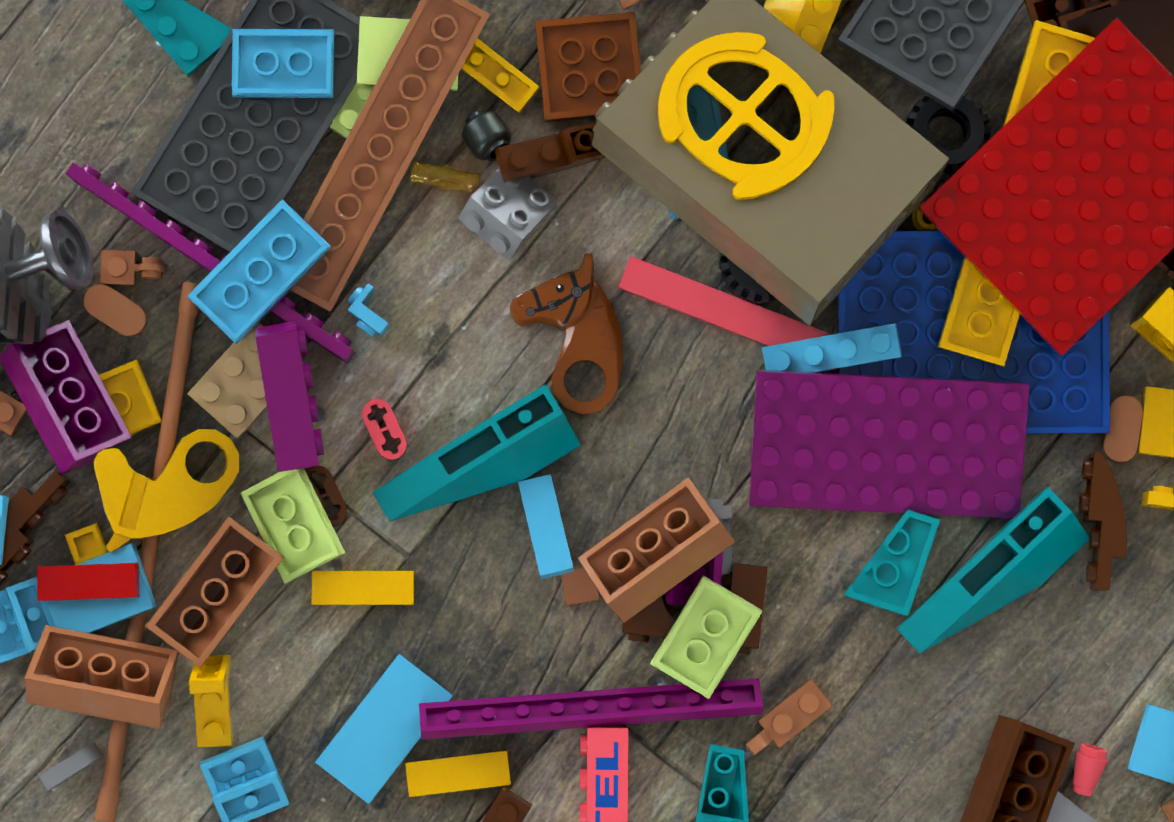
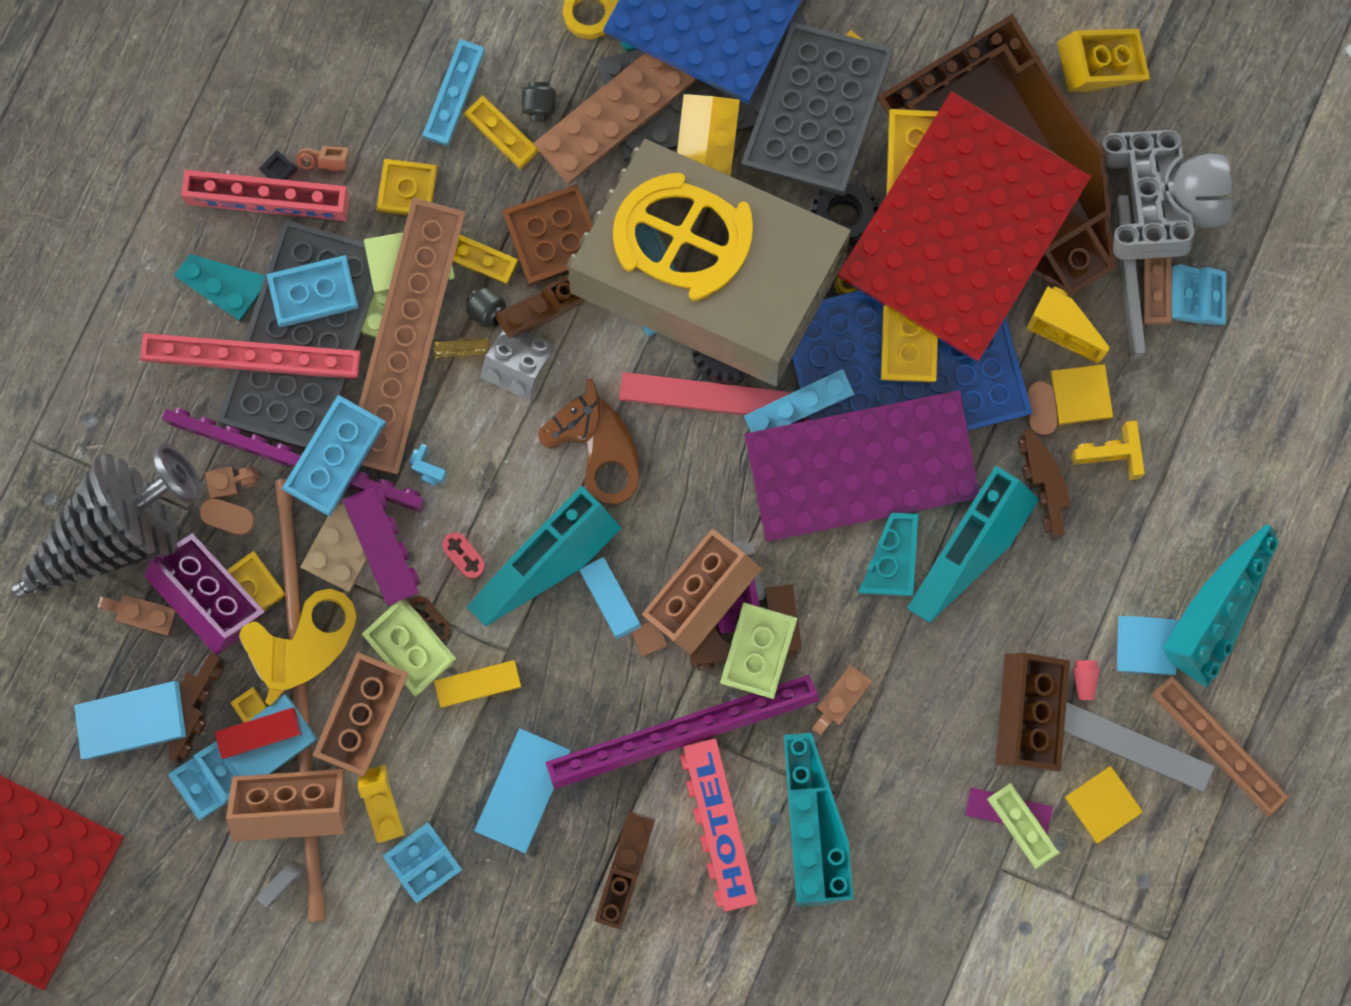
camera: 10 degrees left, 5 degrees down
(189, 124) = (250, 356): none -> coral tile
(458, 773) = (590, 811): yellow tile -> none

